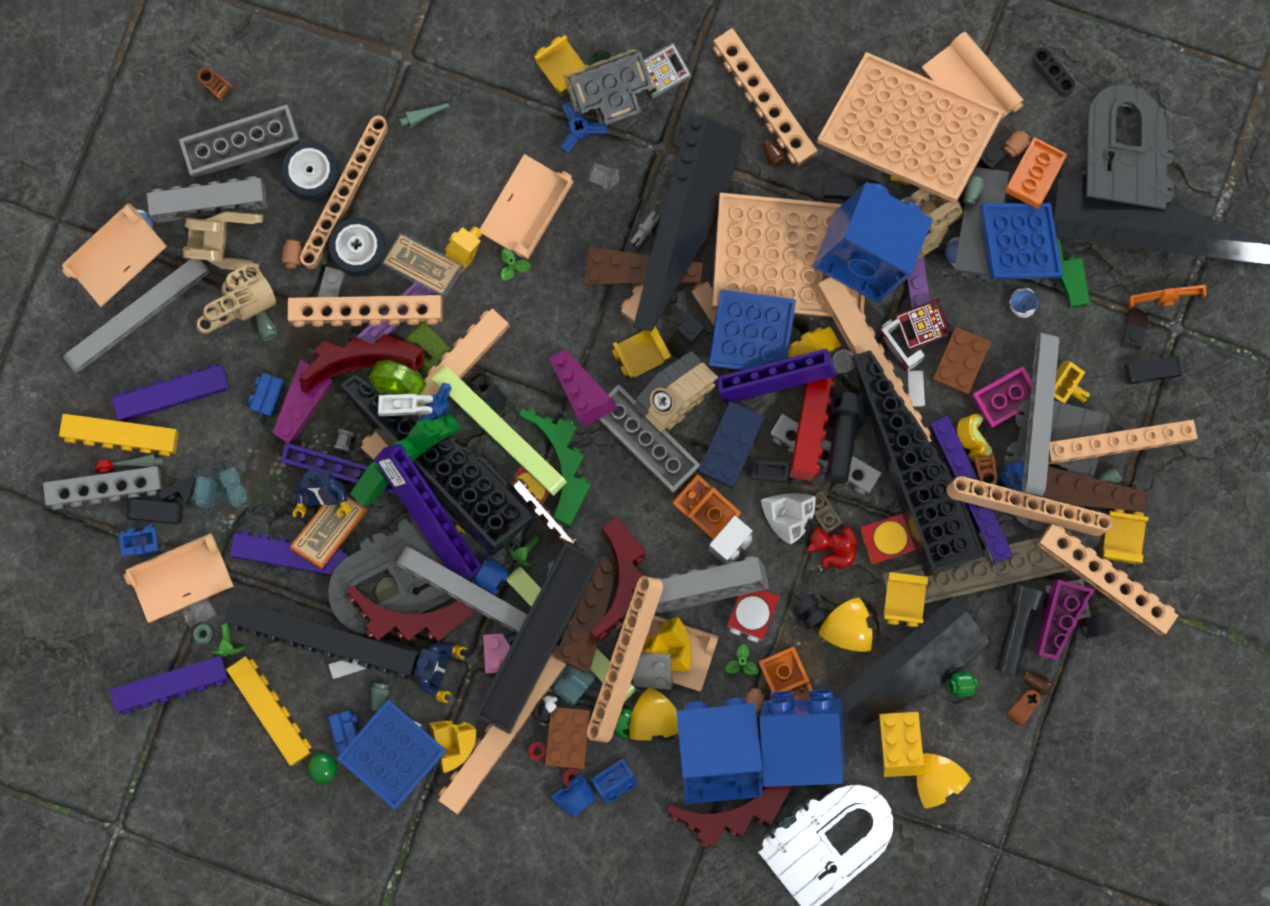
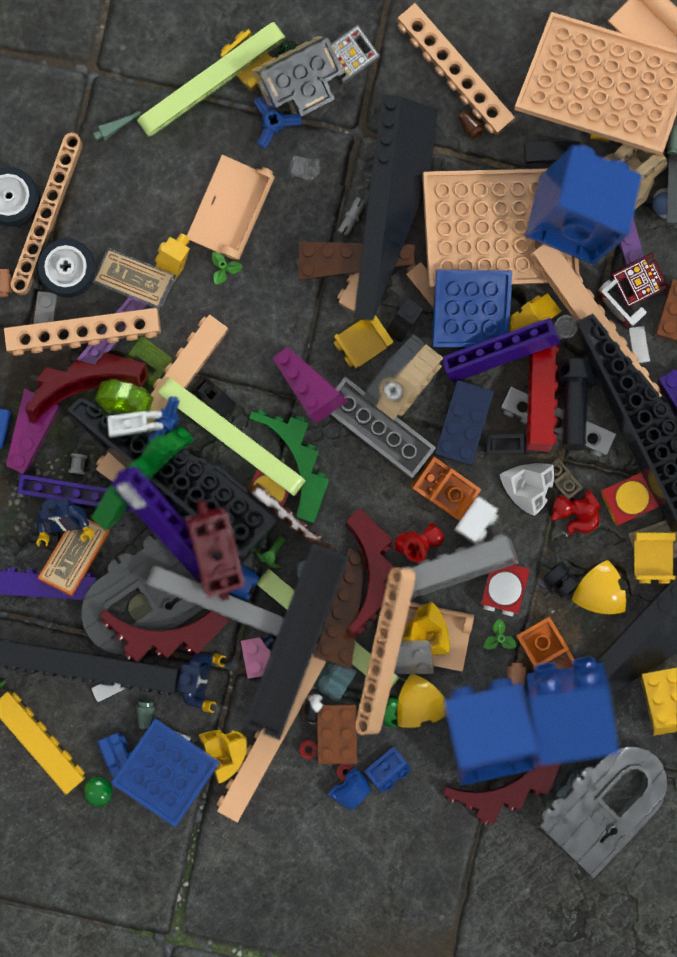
camera: 15 degrees left, 5 degrees up
(467, 518) = (209, 533): none -> dark red brick
(522, 79) = (211, 79): none -> yellowish green beam
(668, 558) = (416, 545): none -> red animal

